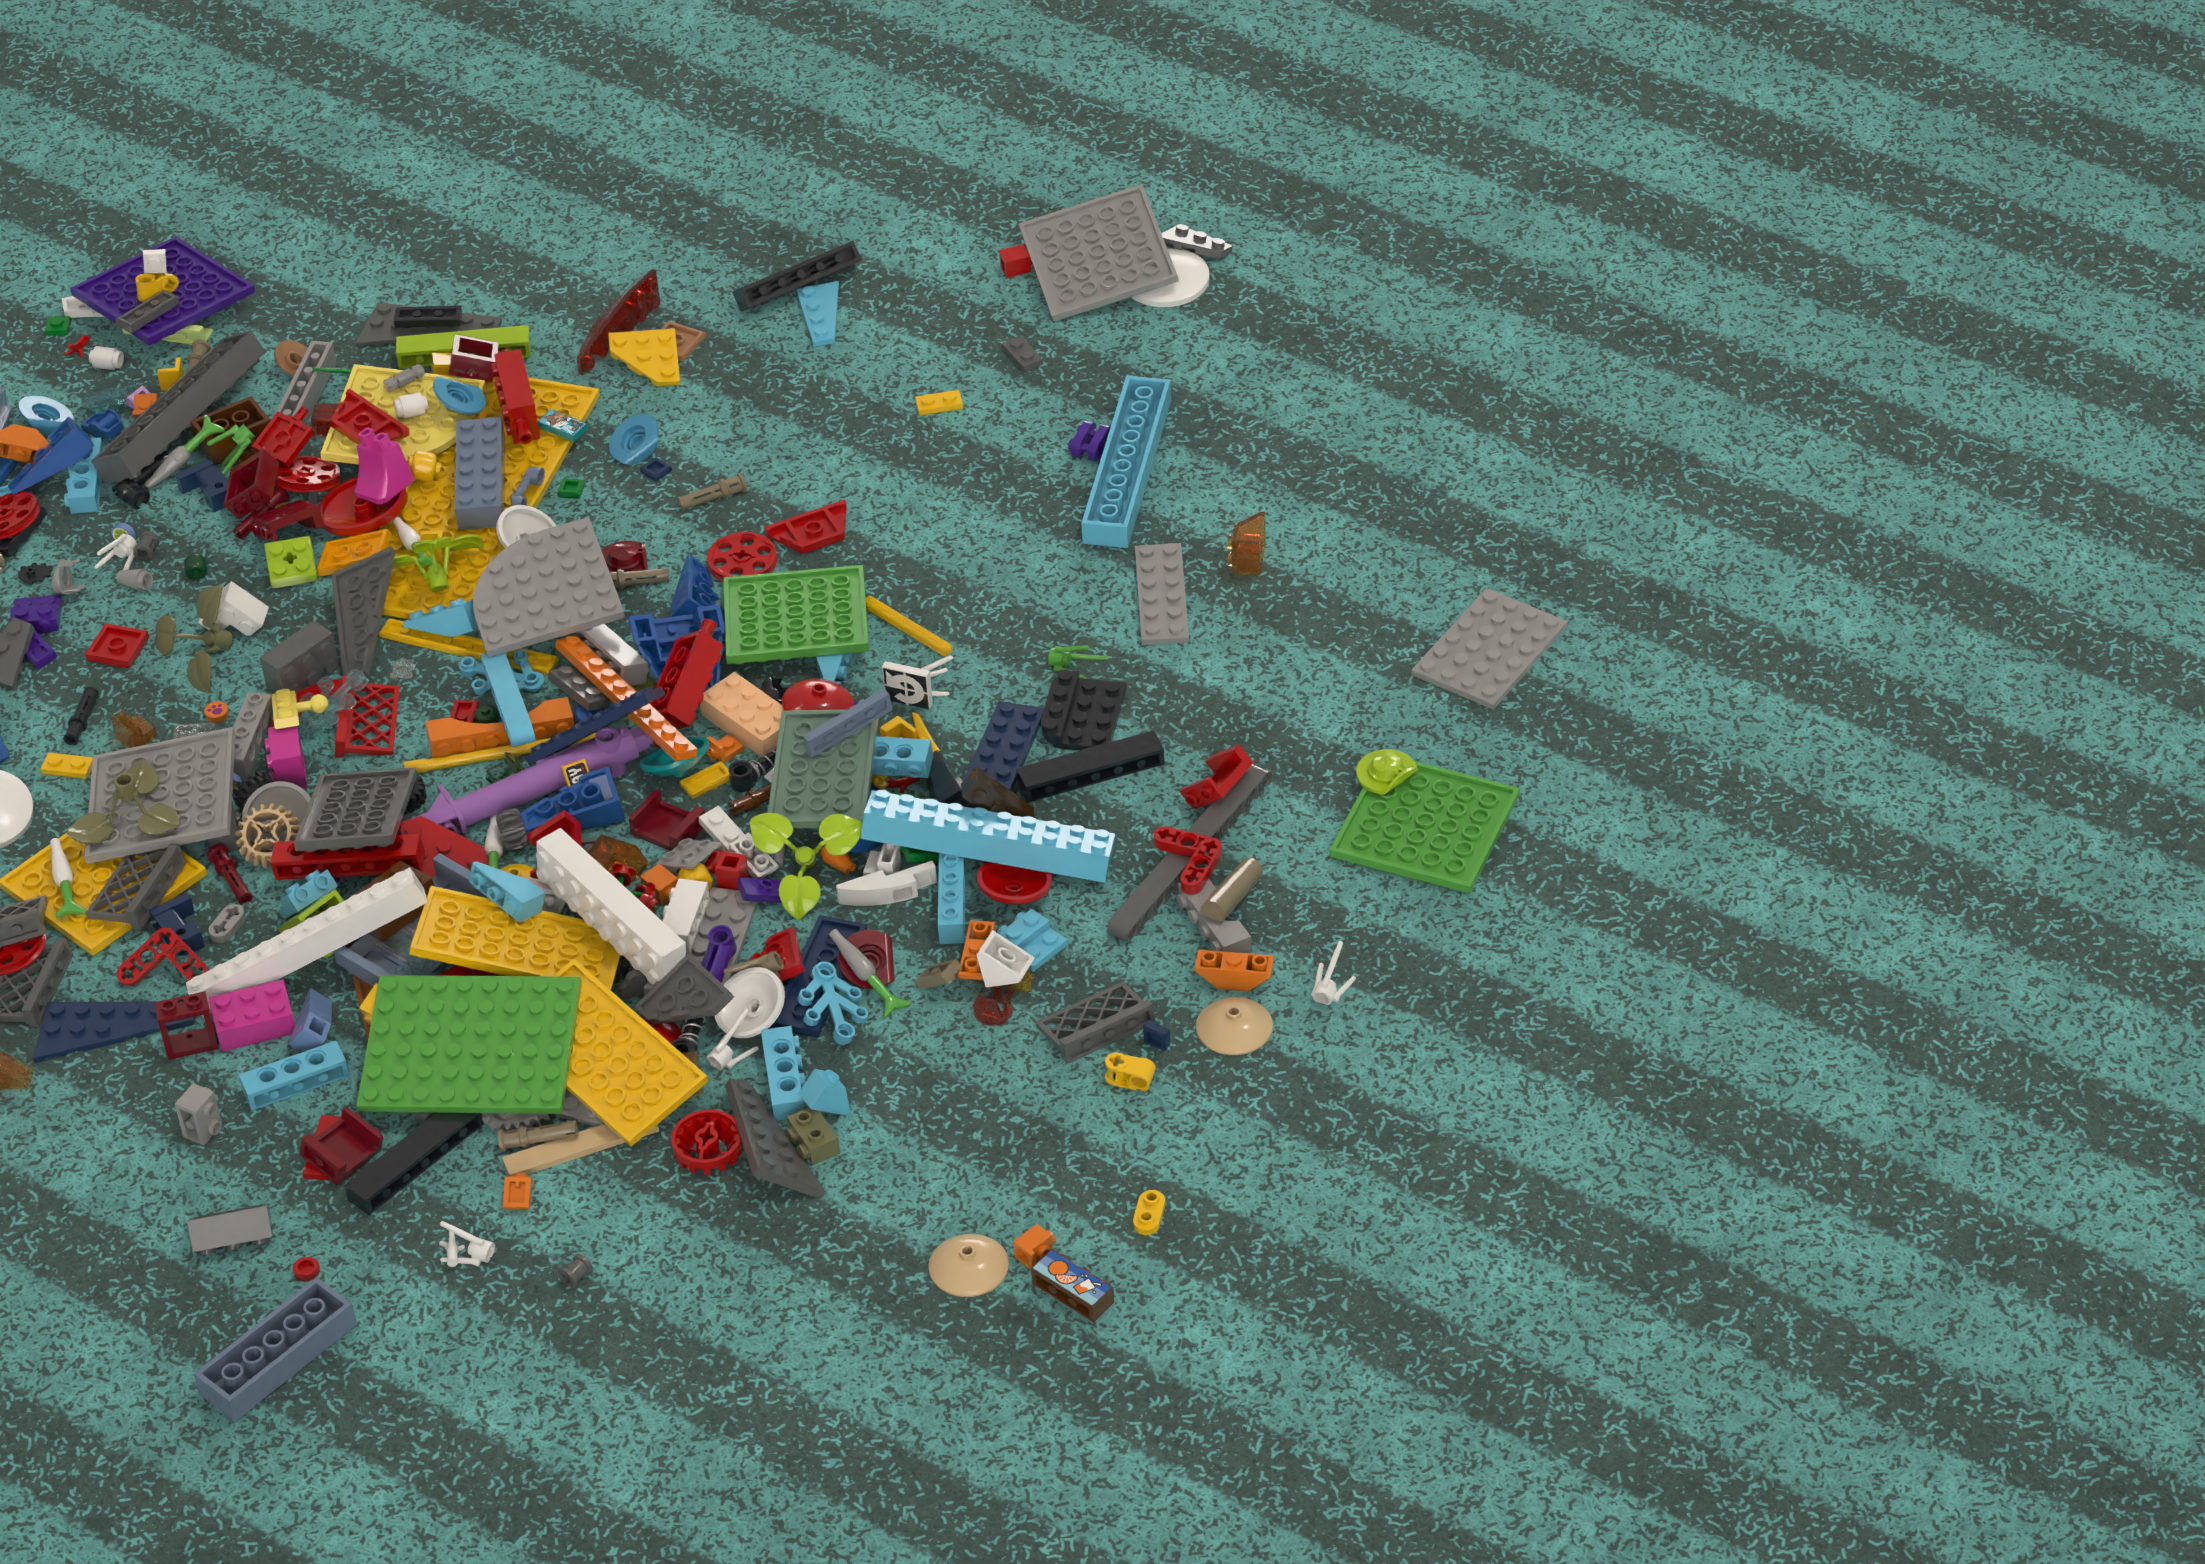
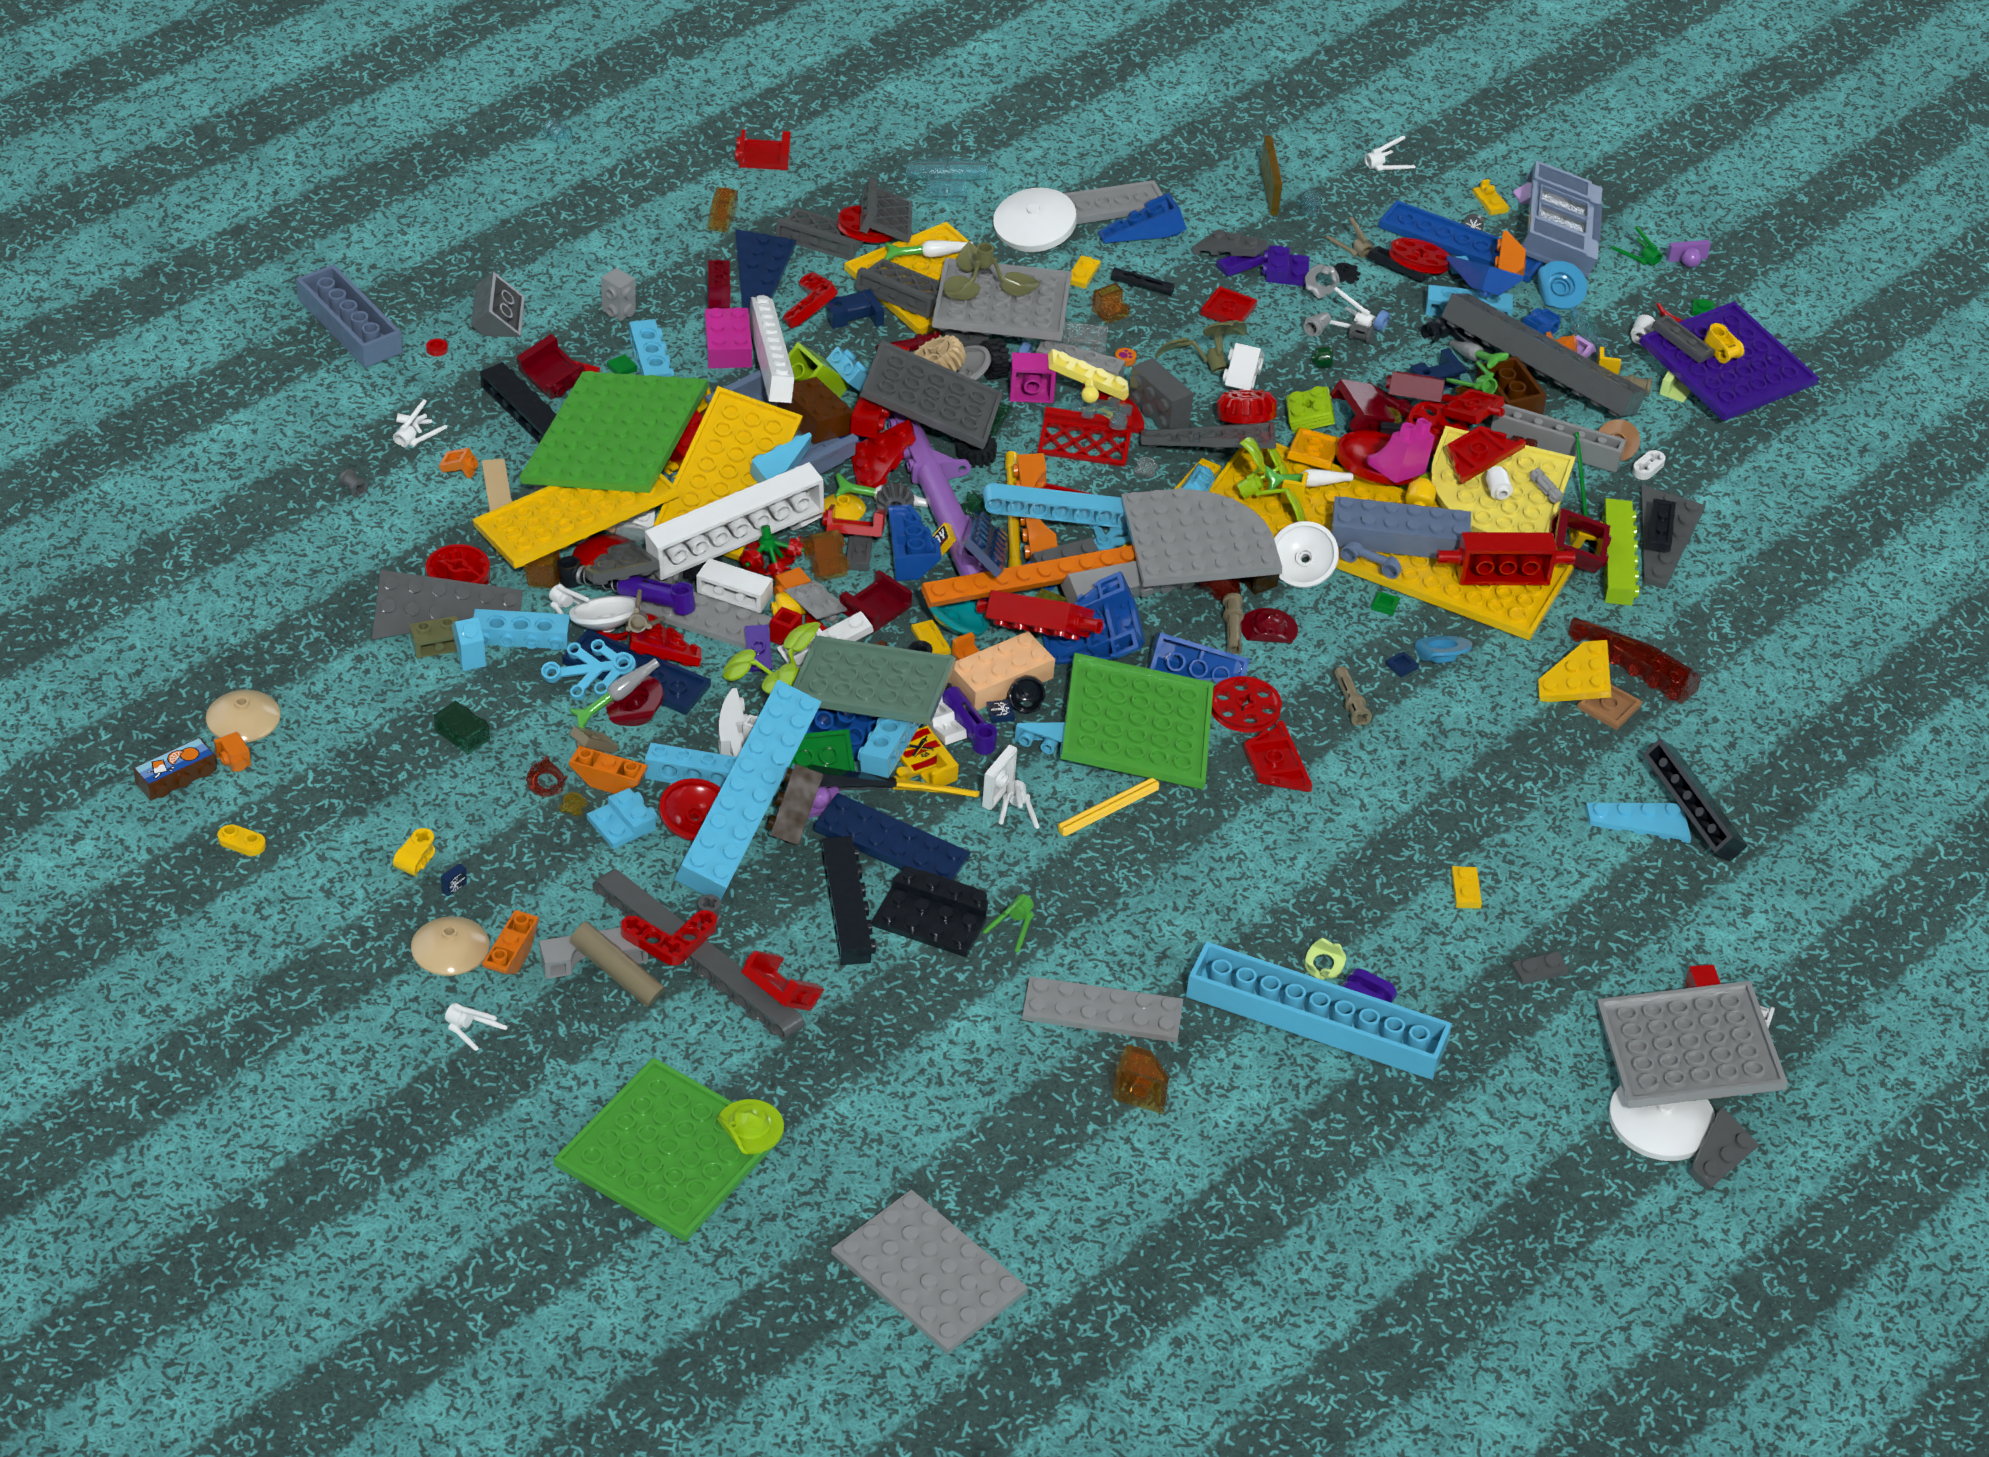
camera: 95 degrees right, 0 degrees up
(154, 261) = (1736, 331): white plate -> none
(229, 924) = (851, 339): light grey beam -> none
(303, 601) = (1246, 406): none -> red gear
(310, 1101) = (622, 365): none -> green tile
(312, 1022) = (706, 367): medium blue slope -> none
(321, 336) = (1645, 462): none -> white beam
(459, 396) = (1505, 511): dark azure hat -> none
(526, 1136) = (515, 474): dark tan pin -> none
(562, 425) = (1471, 597): tile -> none
(817, 695) = (985, 714): red dish -> none
(847, 723) = (908, 687): sand blue plate -> none
(943, 1081) = (462, 727): none -> clear green brick
(1002, 961) = (584, 777): white slope -> none
(1052, 480) = (1324, 947): none -> yellowish green piece
(1100, 1031) = (485, 864): dark grey fence -> none
(1135, 852) = (711, 903): none -> dark grey bush

